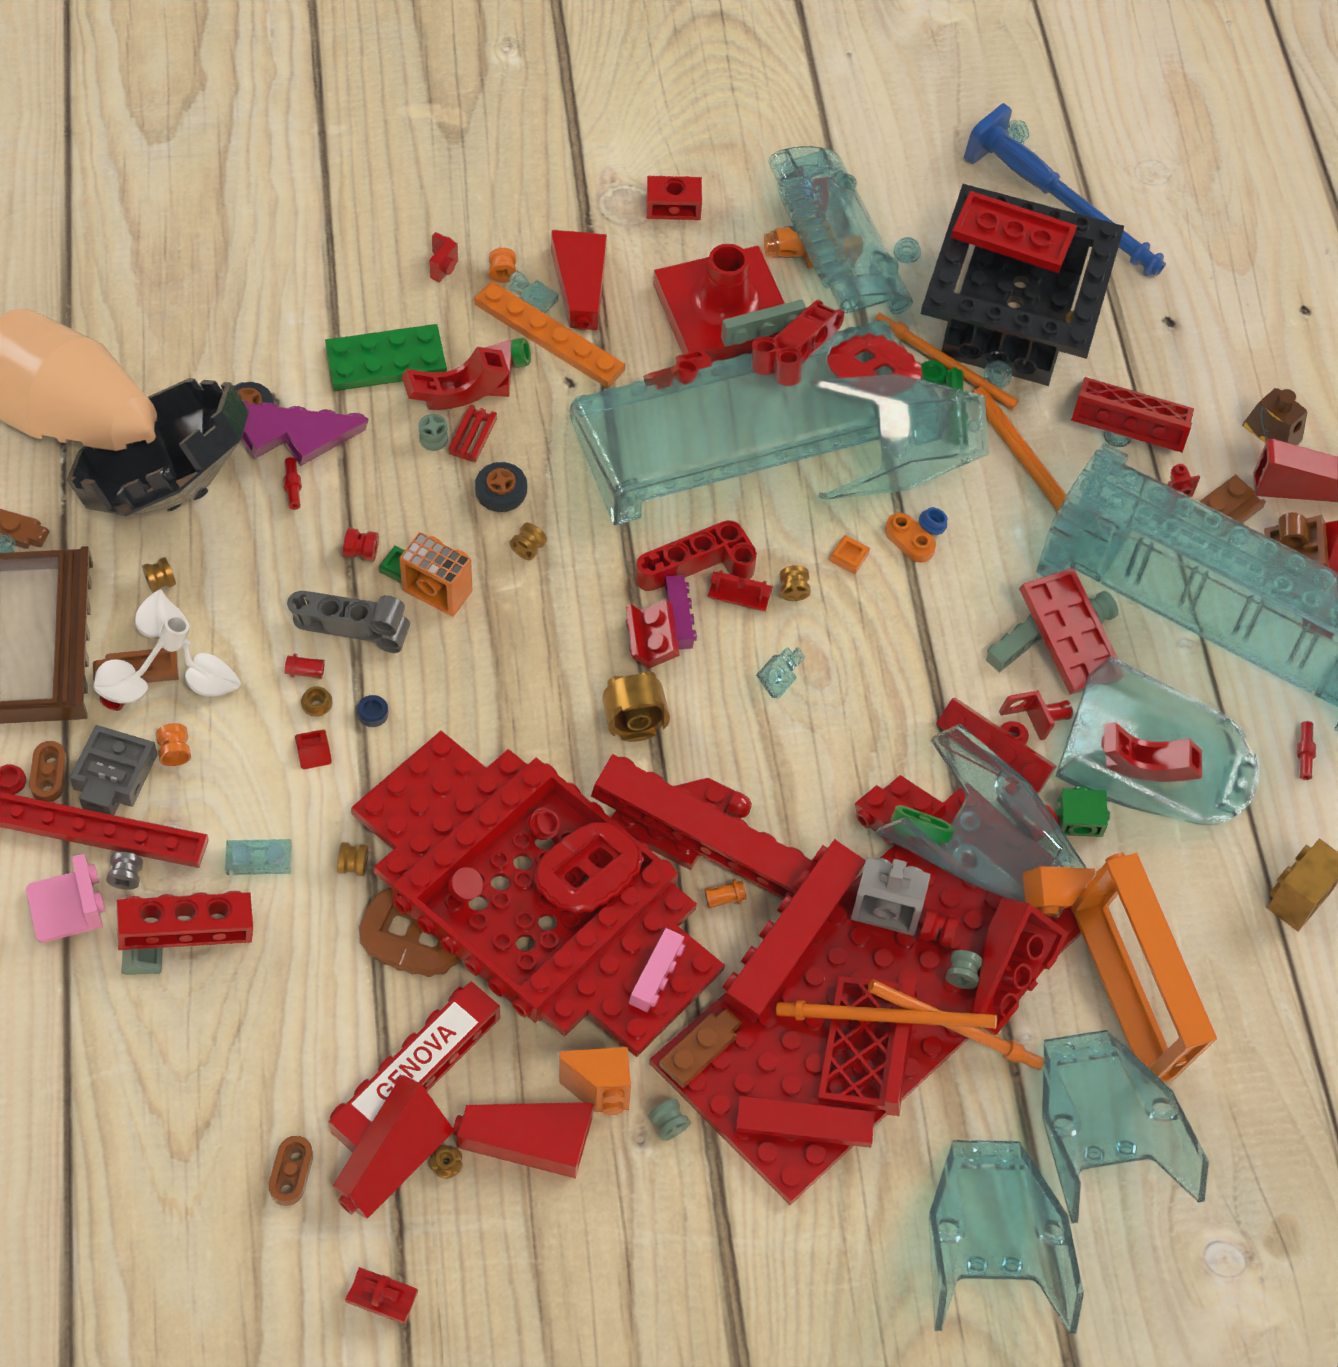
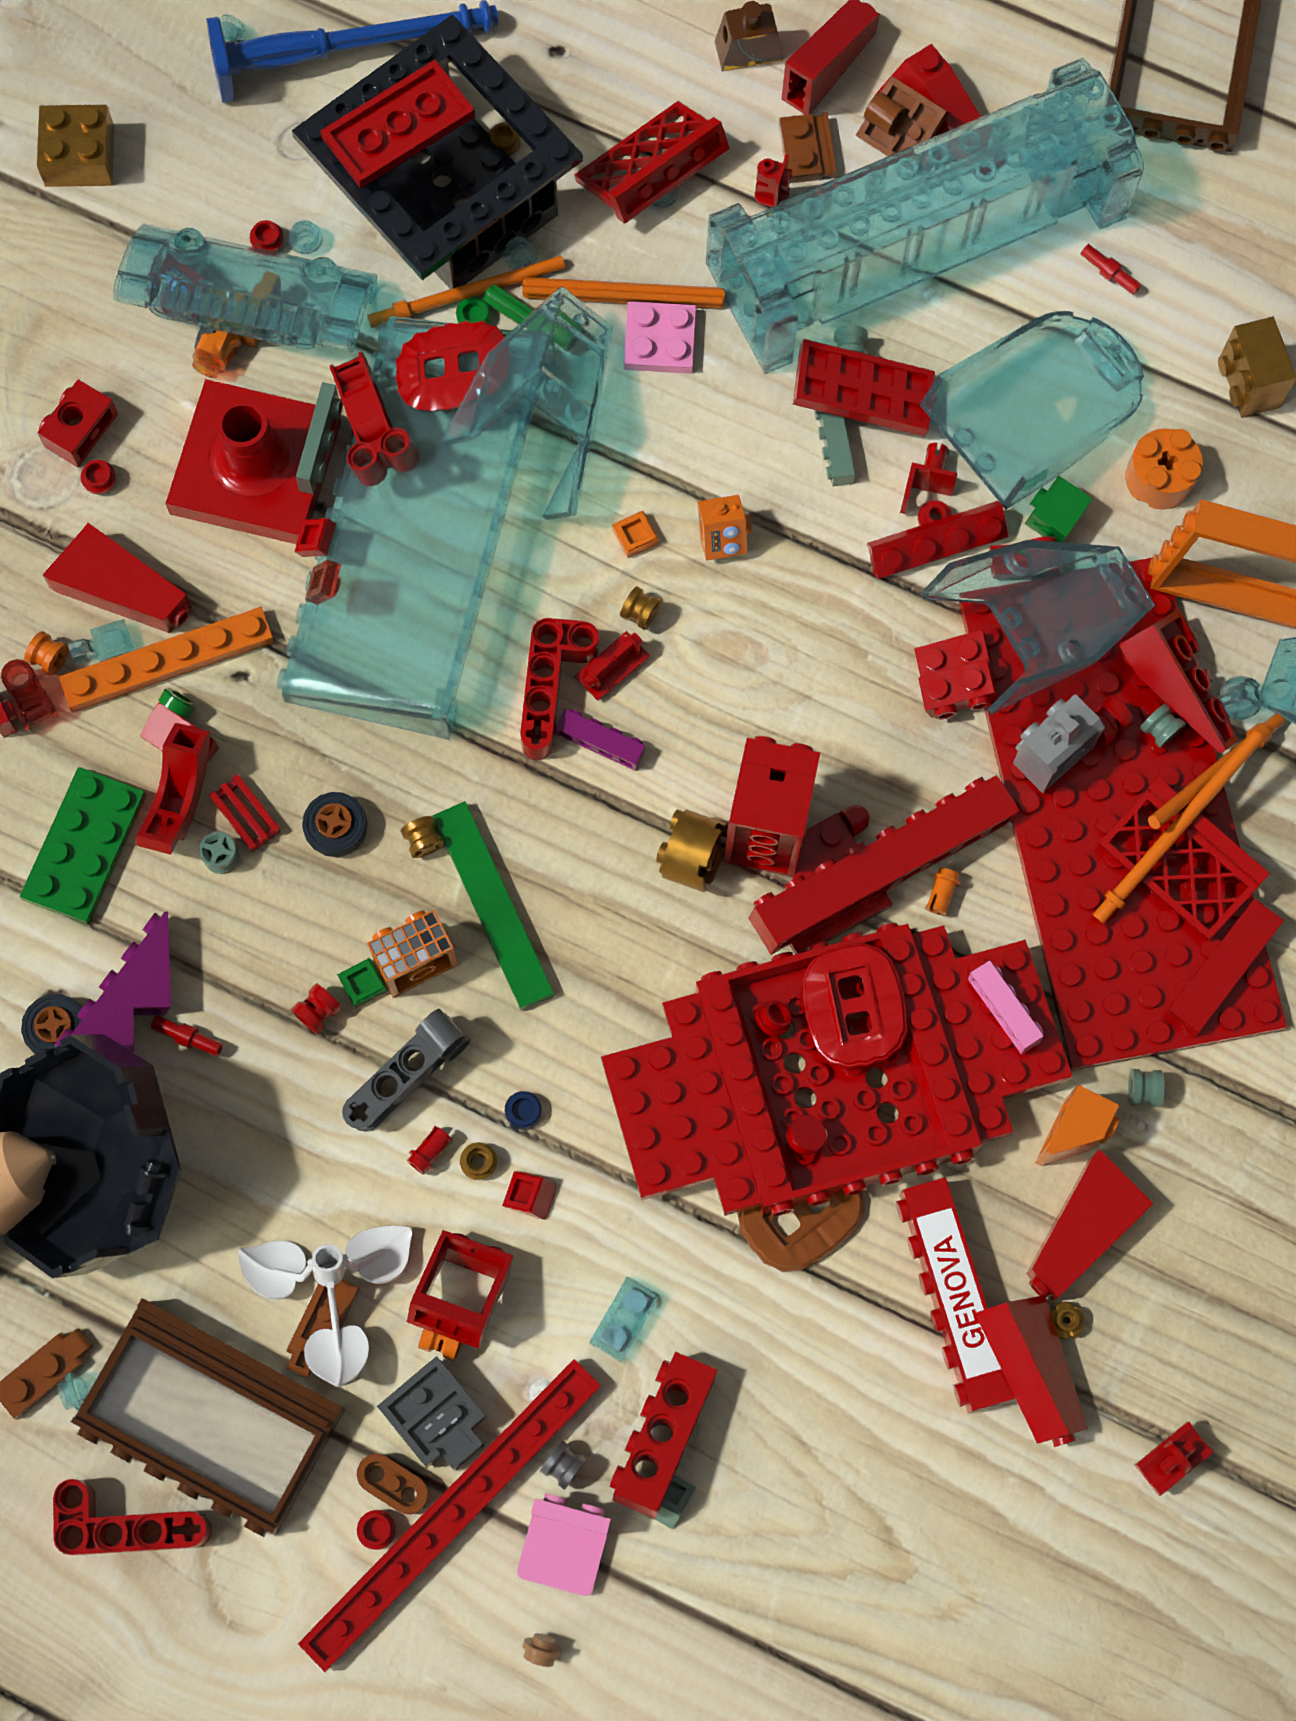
camera: 55 degrees left, 15 degrees up
(159, 574) = (219, 1240): pearl gold wheel -> none
(183, 736) = (449, 1318): none -> red window
(291, 1172) = (991, 1474): dark orange plate -> none
(352, 859) = (689, 1227): pearl gold wheel -> none
(466, 269) = (30, 699): none -> clear red piece
(509, 613) = (493, 906): none -> green tile
(646, 229) = (98, 477): none -> red plate
(652, 633) = (613, 781): red bracket -> none
(687, 370) = (329, 550): red hinge -> none
(693, 722) = (771, 805): none -> red piece
(700, 1047) = (1095, 1014): dark orange hinge -> none
(778, 671) = (732, 688): clear light blue plate -> none
(793, 931) = (1037, 854): red brick -> none
(864, 95) = (75, 145): none -> pearl gold brick
(890, 229) = (266, 236): none -> red plate
(892, 598) = (723, 527): none -> orange head
(908, 536) = (653, 467): orange plate -> none
(933, 521) = (651, 430): blue plate -> none
(933, 827) = (1004, 665): green plate -> none
(1008, 491) = (659, 337): none -> bright pink plate
(1033, 1021) = (1241, 697): none -> clear light blue piece
(1055, 887) = (1138, 590): orange slope -> none
(1148, 759) = (1046, 409): red arch -> none
(1177, 865) = (1164, 468): none -> orange brick

